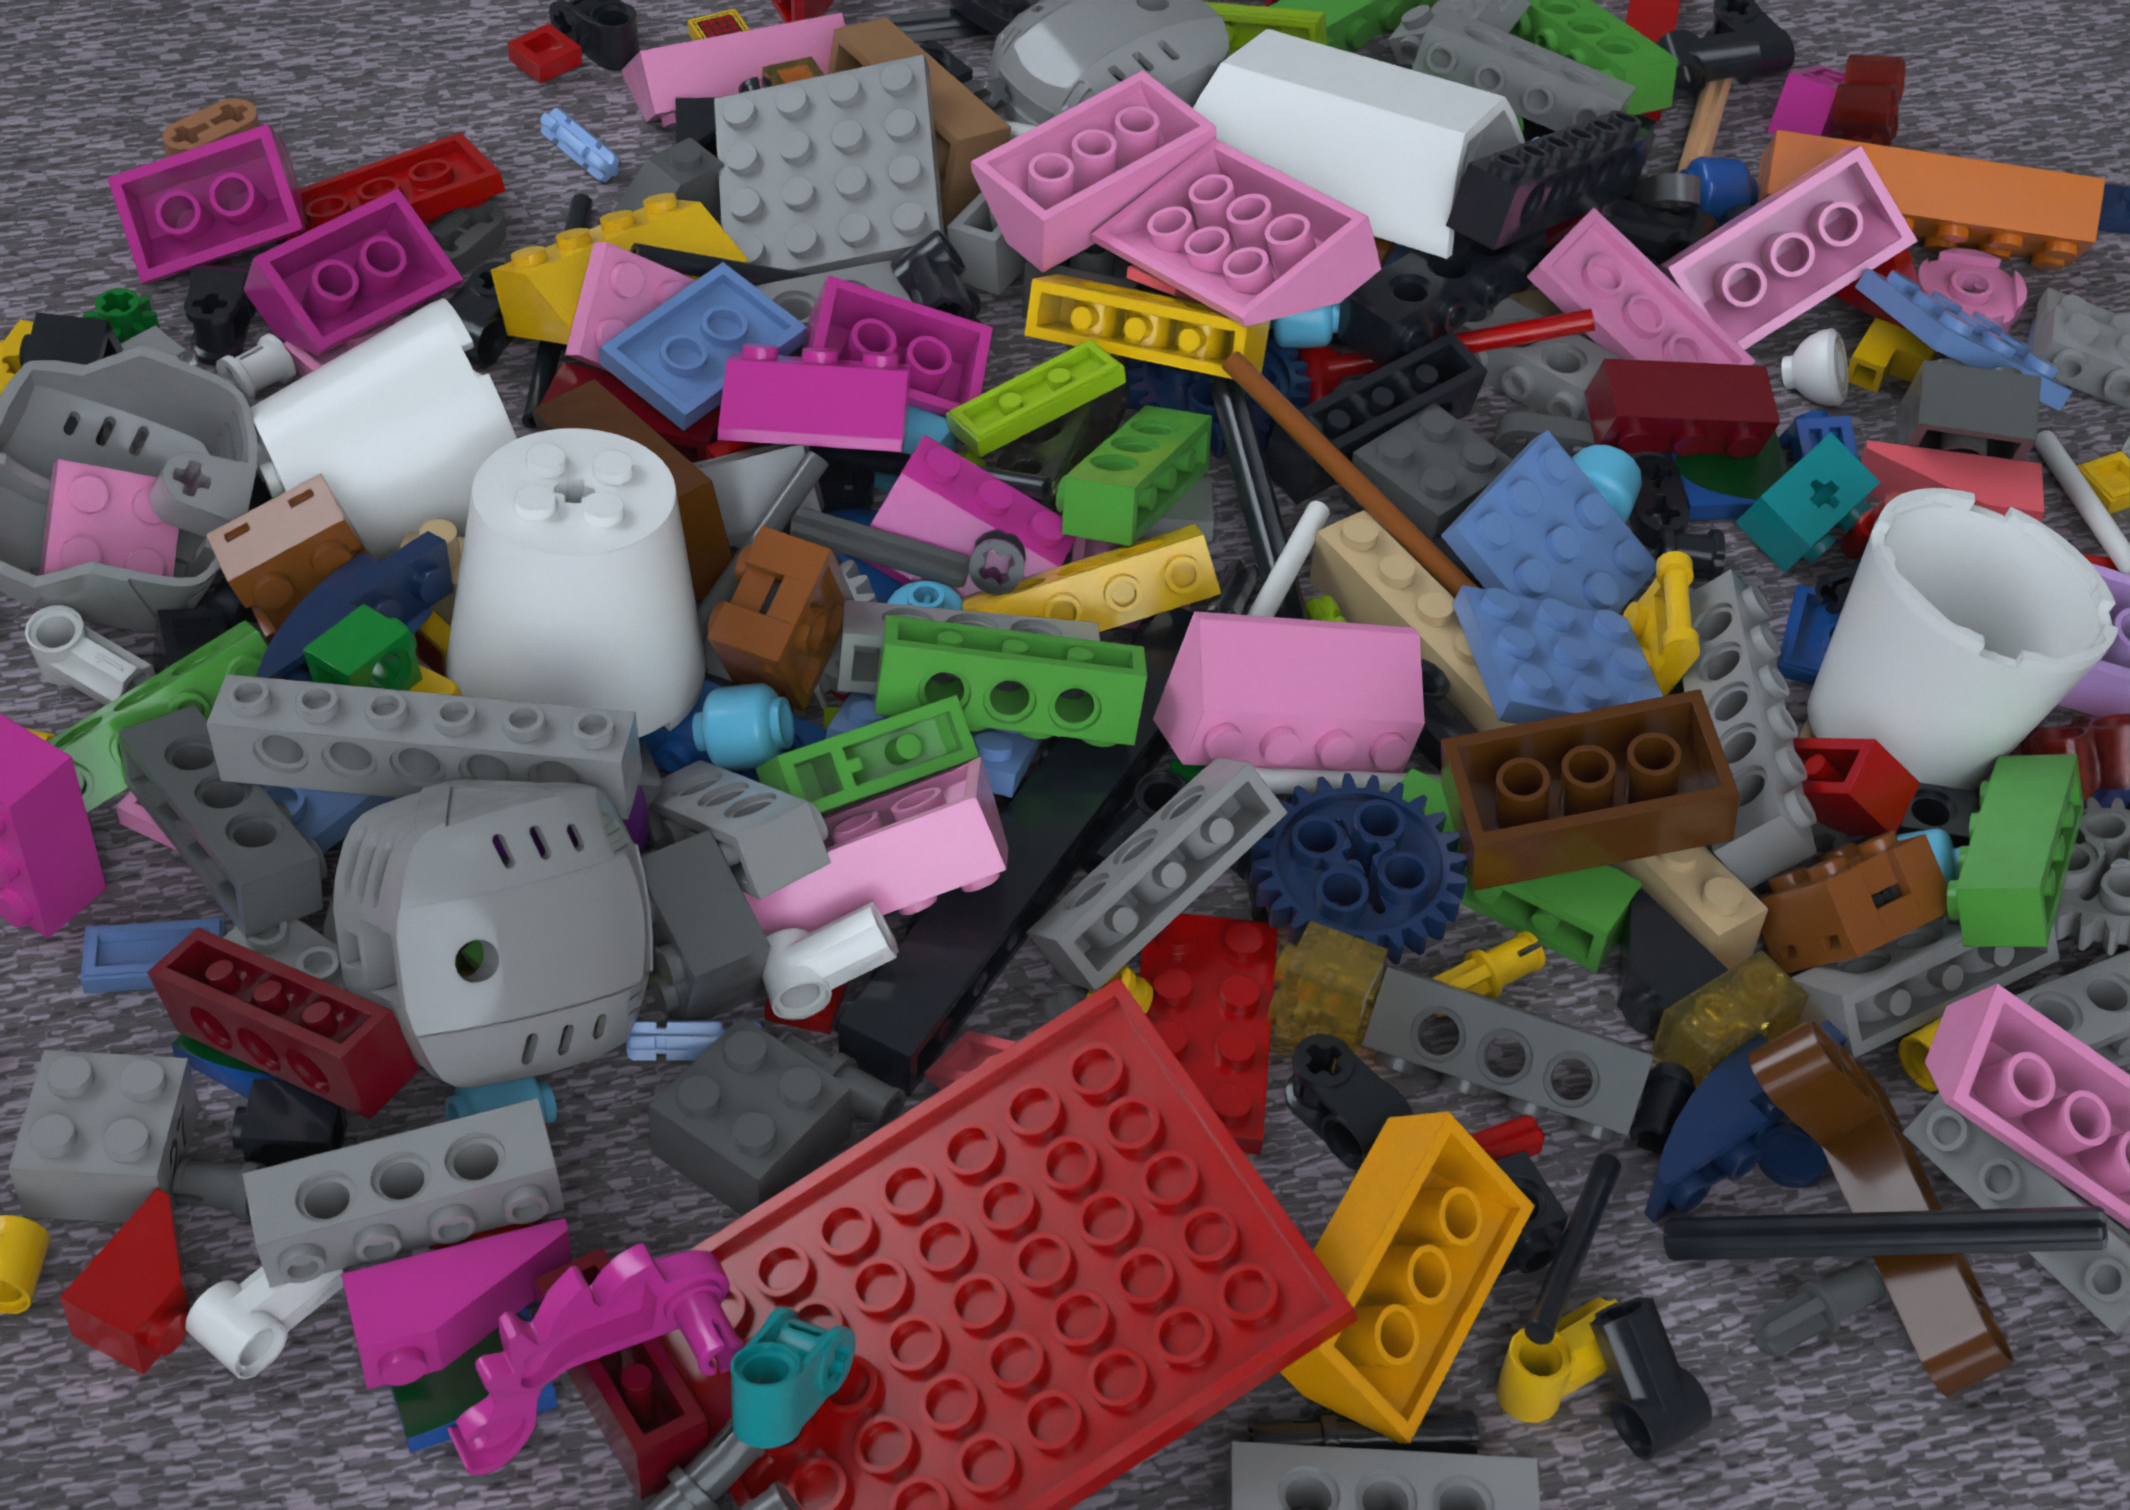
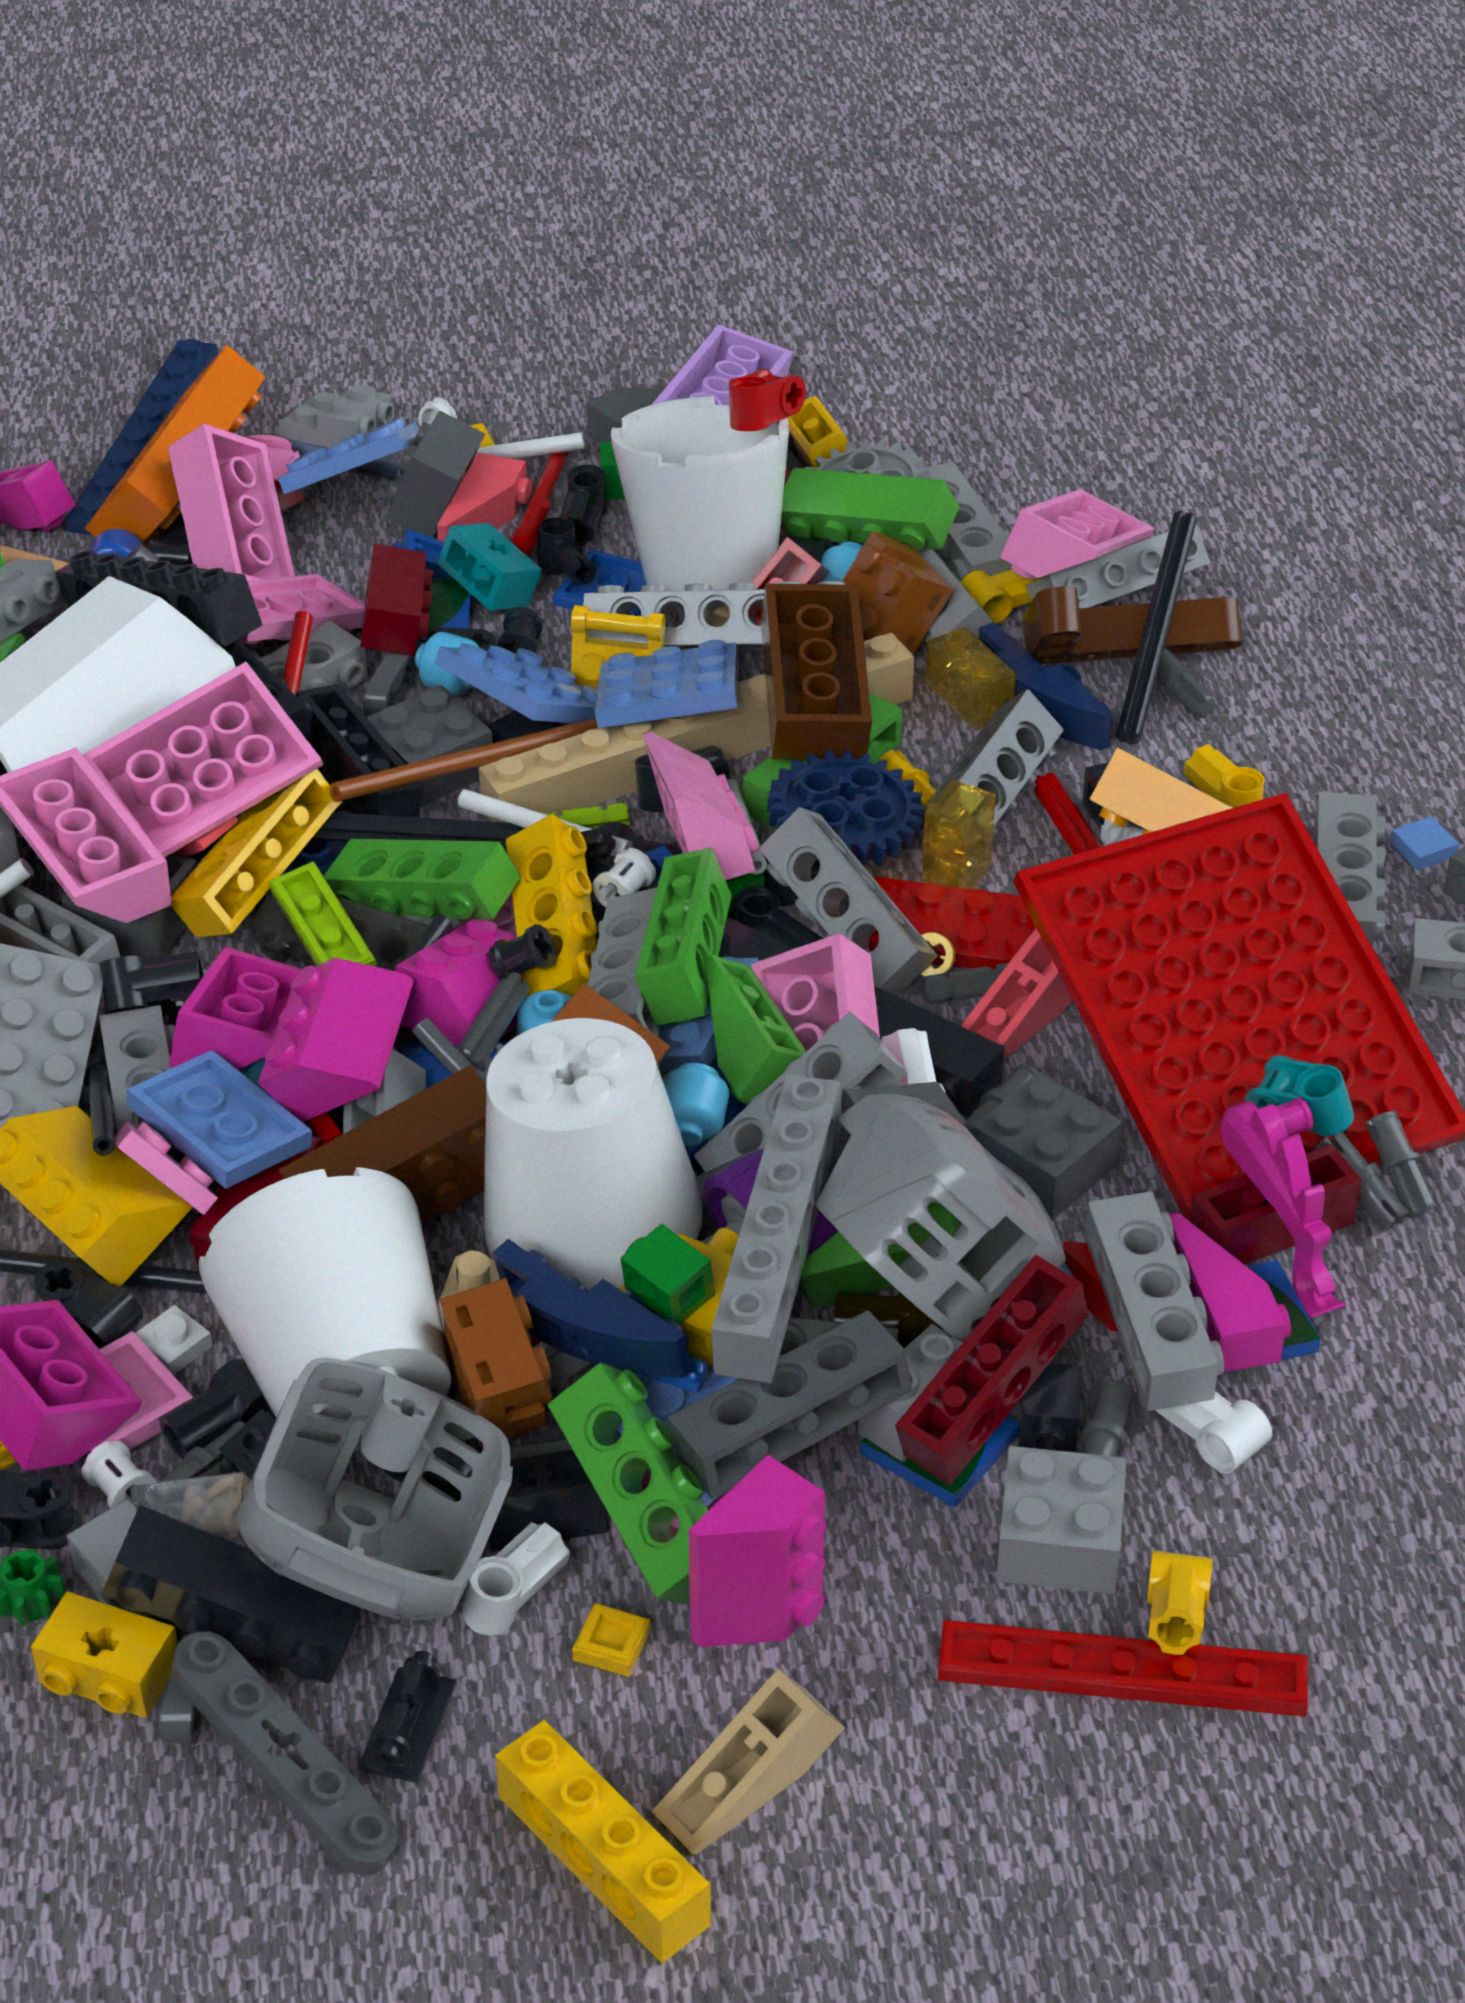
camera: 80 degrees left, 5 degrees down
(106, 520) = (391, 1525): bright pink plate -> none
(124, 953) = (853, 1521): medium blue tile -> none
(134, 1290) = (1198, 1493): red slope -> none
(1159, 642) = (622, 877): none -> white bush
(1344, 1105) = (1022, 849): black piece -> none
(1572, 1250) = (1167, 763): black bar -> none
(1656, 1396) = (1251, 746): black piece -> none
(1658, 964) = (930, 700): black slope -> none
(1819, 368) = (334, 543): white brick -> none
(1869, 98) = (68, 450): clear red piece -> none
(1887, 351) = (319, 515): yellow piece -> none
(2057, 612) = (763, 399): none -> red piece

